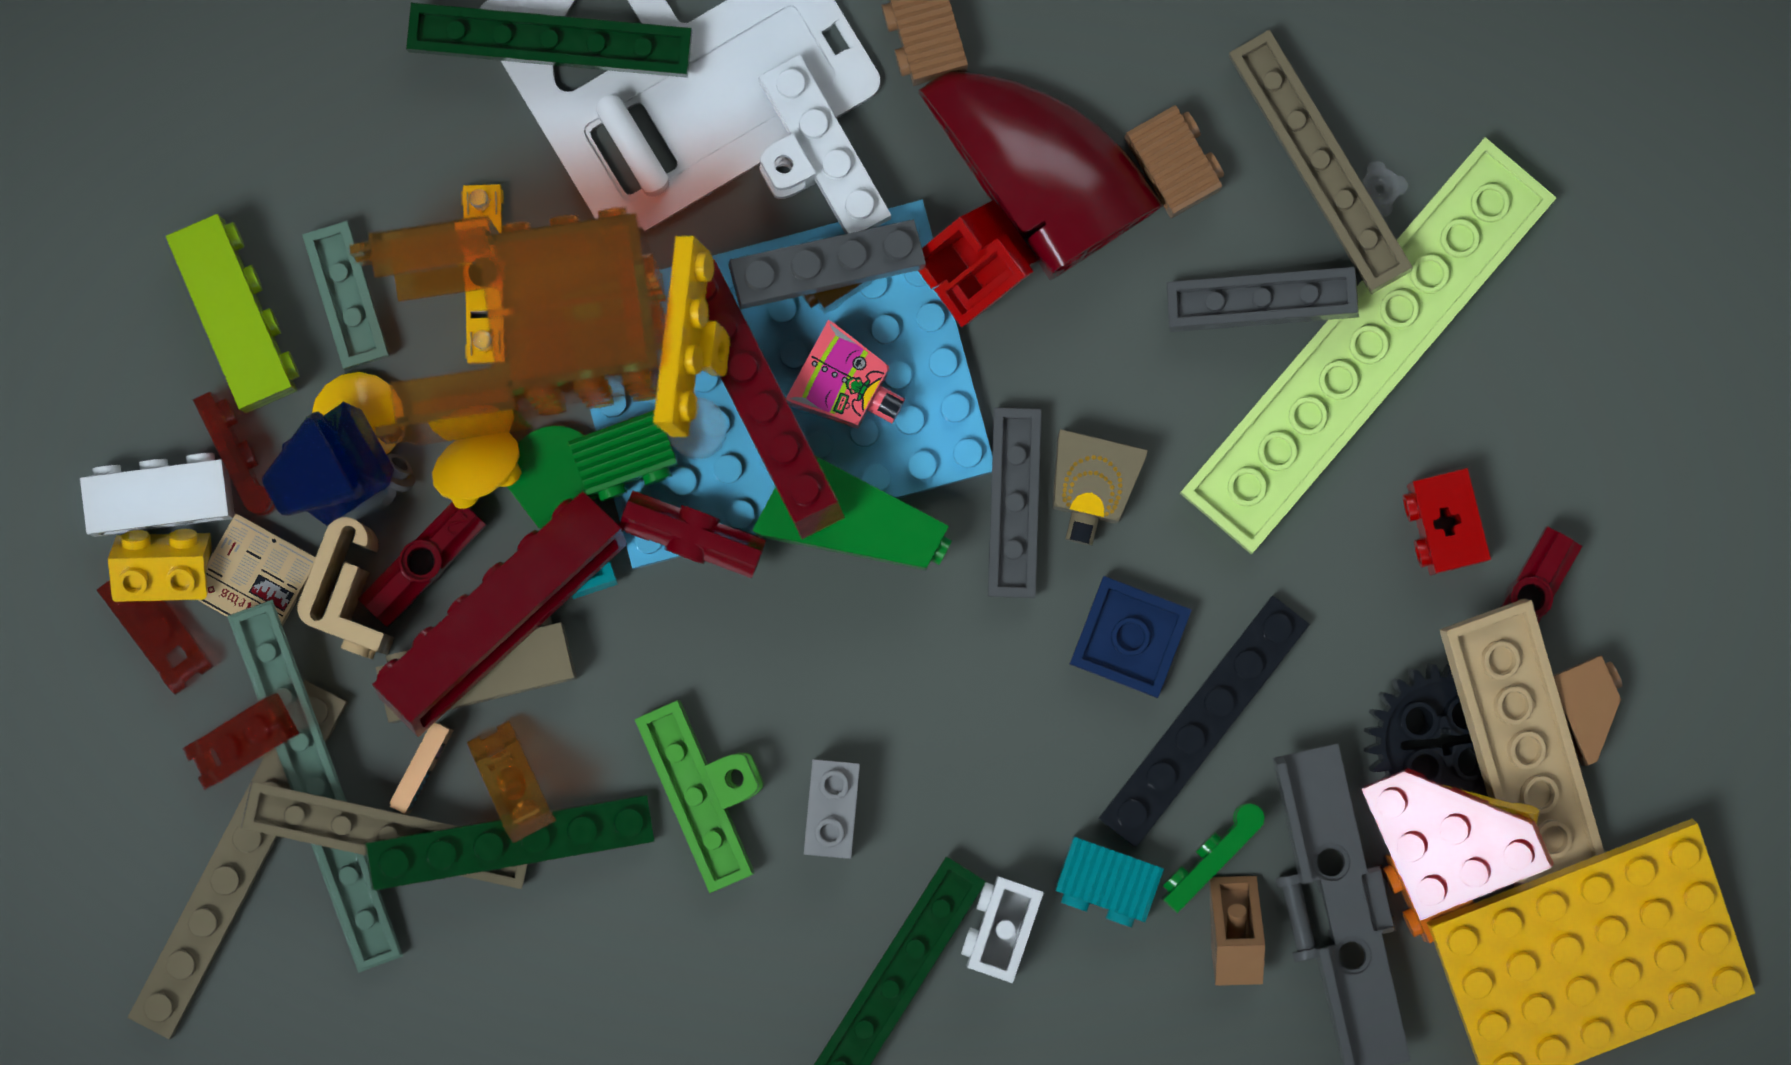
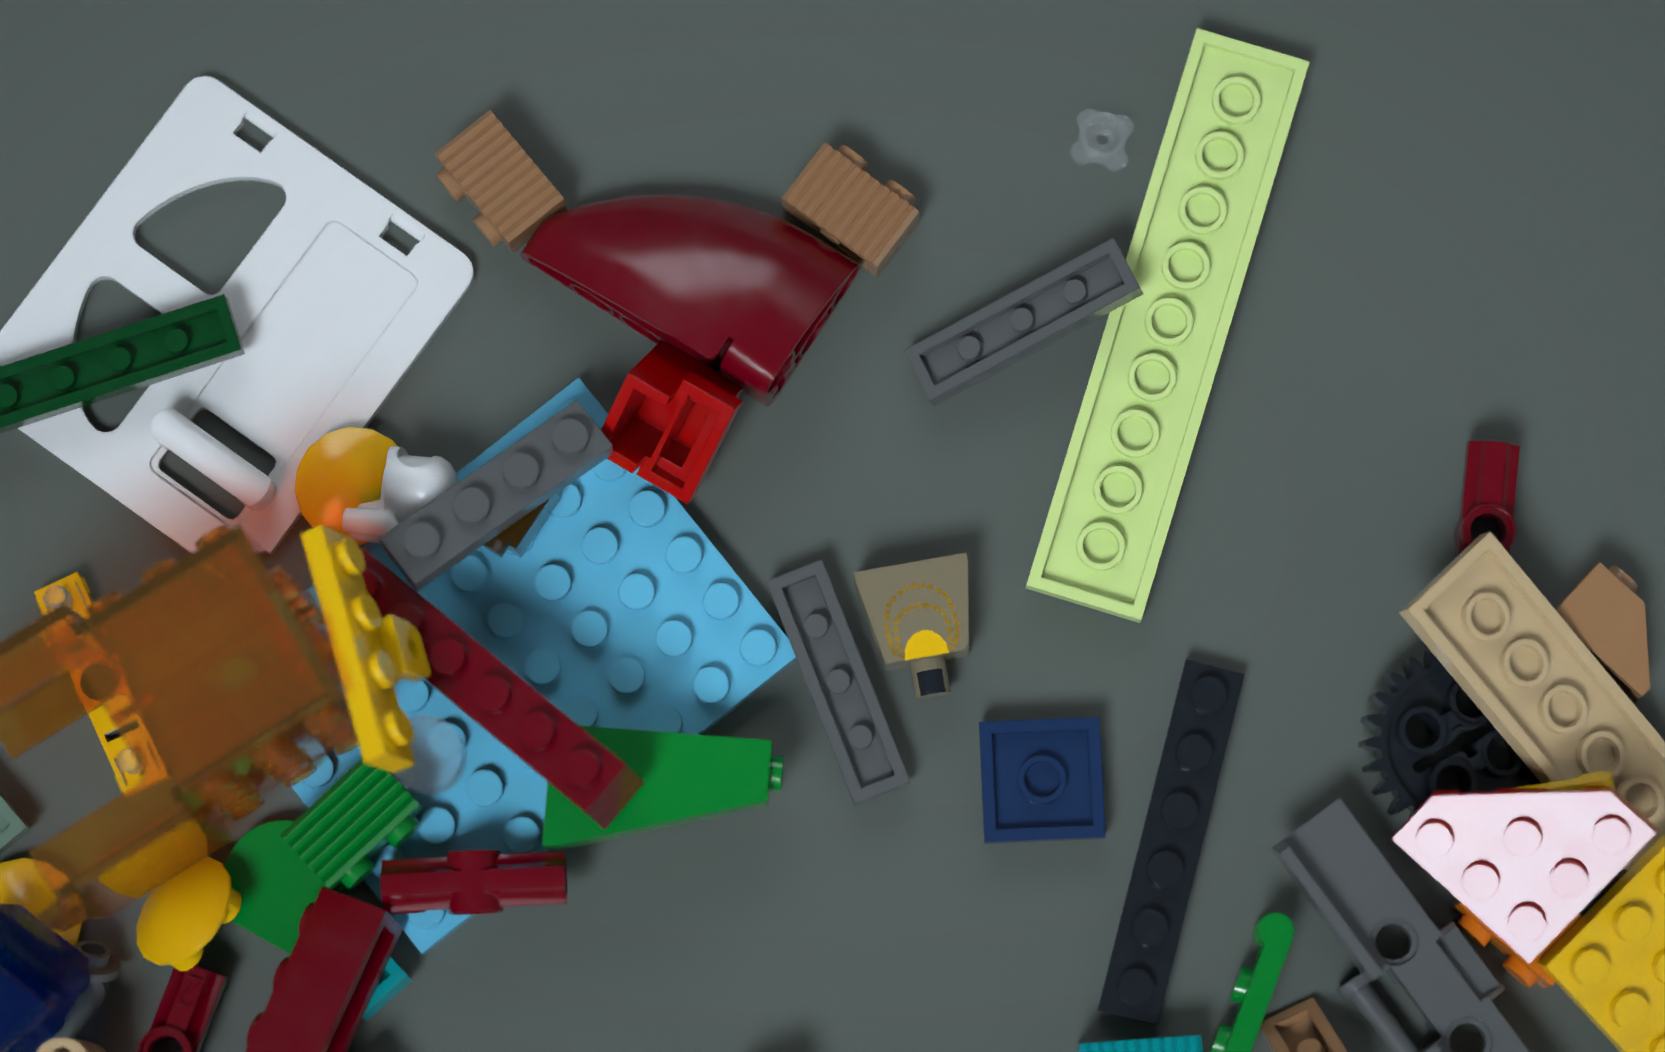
camera: 15 degrees left, 5 degrees down
(726, 207) = (341, 474): none -> yellow dish
(763, 231) = (405, 489): none -> white piece
(816, 151) = (429, 373): white plate -> none
(843, 381) = (575, 625): torso -> none
(1320, 162) = (1021, 136): dark tan plate -> none
(1456, 499) = (1348, 454): red brick -> none

